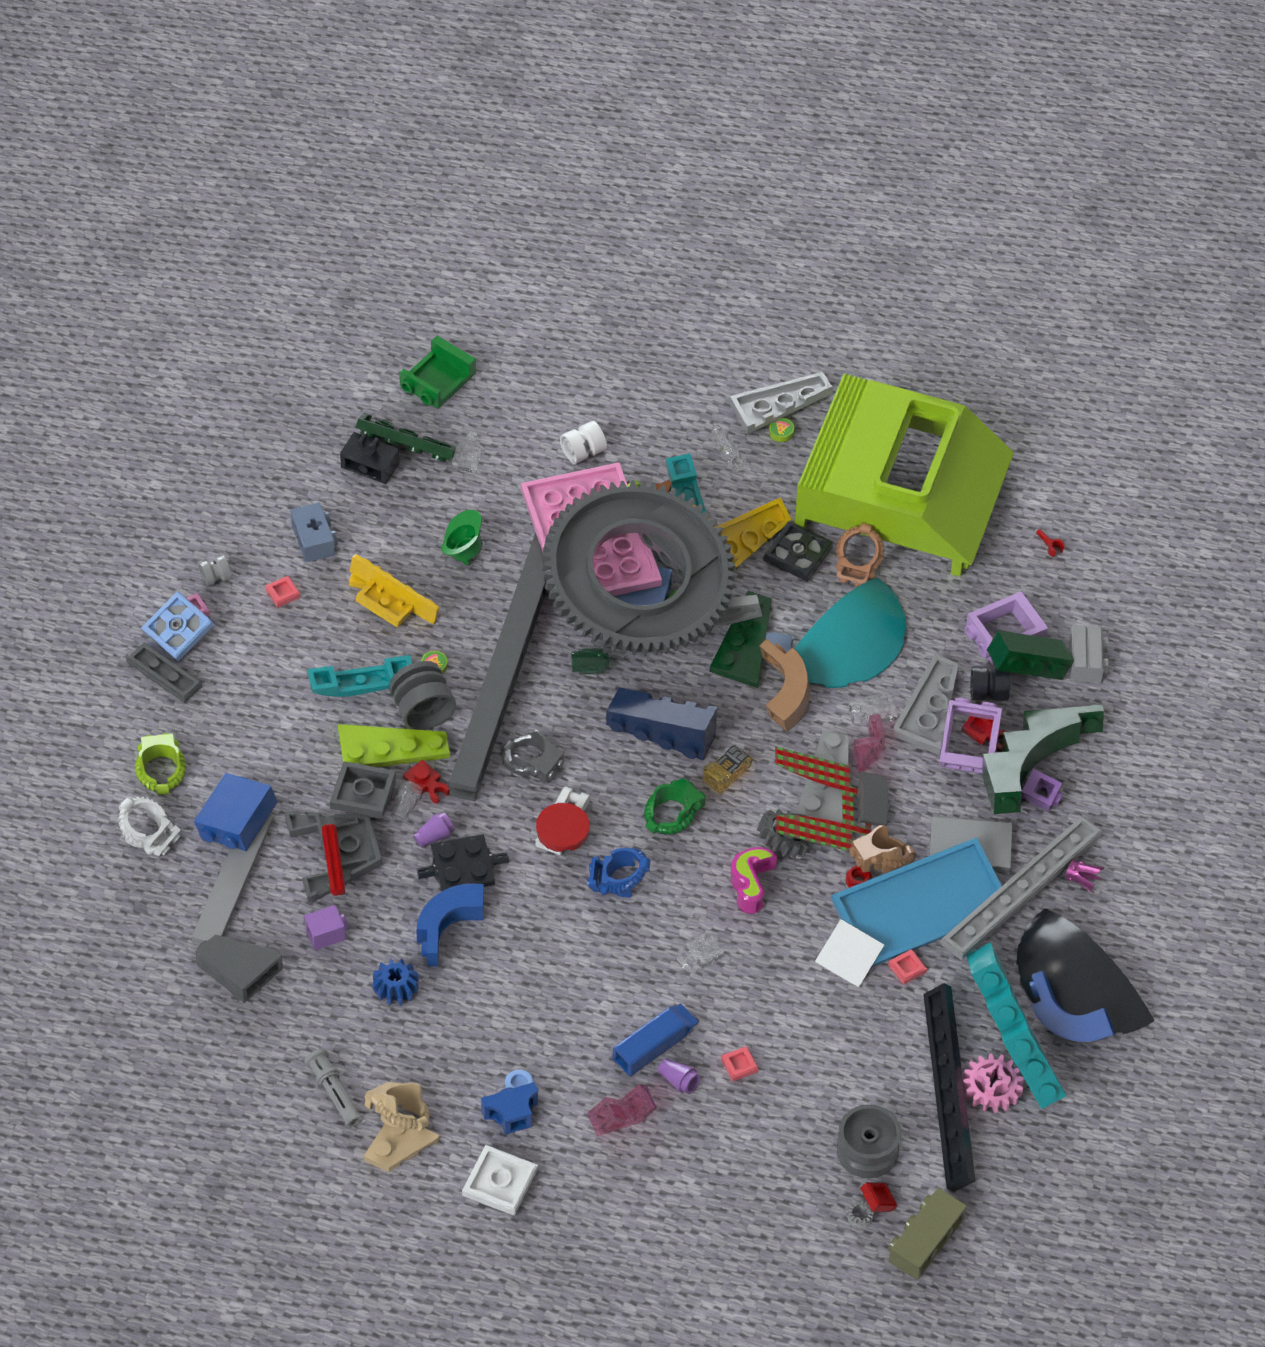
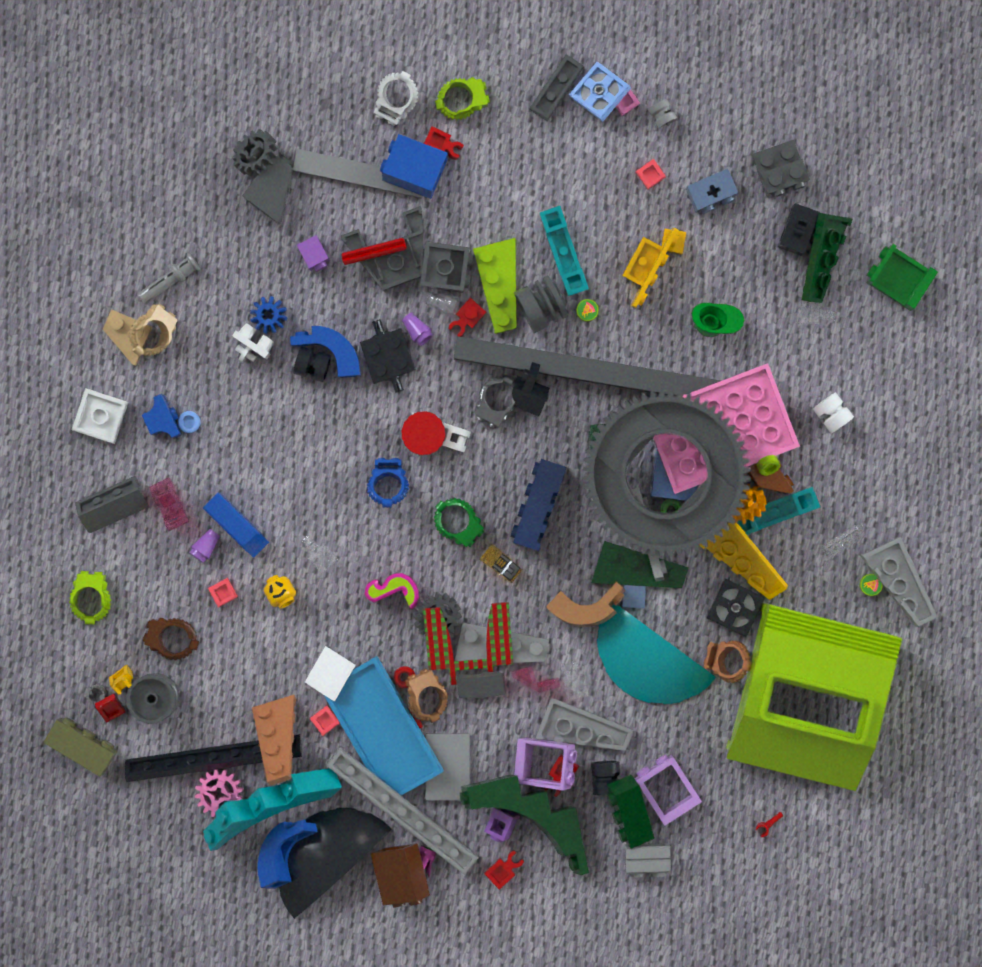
camera: 90 degrees right, 35 degrees up
(182, 967) = (255, 152): none -> dark grey gear
(204, 788) = (440, 140): none -> red plate
(297, 470) = (780, 169): none -> dark grey plate
(433, 1005) = (262, 347): none -> white hips
(463, 938) = (312, 364): none -> black wheel
(523, 716) = (529, 394): none -> black brick
(614, 1176) = (111, 504): none -> dark grey panel
(719, 1194) = (96, 581): none -> lime piece
(743, 997) = (279, 591): none -> yellow head
(790, 1137) = (156, 630): none -> reddish brown piece
(841, 1176) = (121, 679): none -> yellow plate
(924, 1003) = (275, 737): none -> nougat wing
(1097, 797) = (502, 871): none -> red plate
(1100, 890) = (400, 875): none -> reddish brown brick

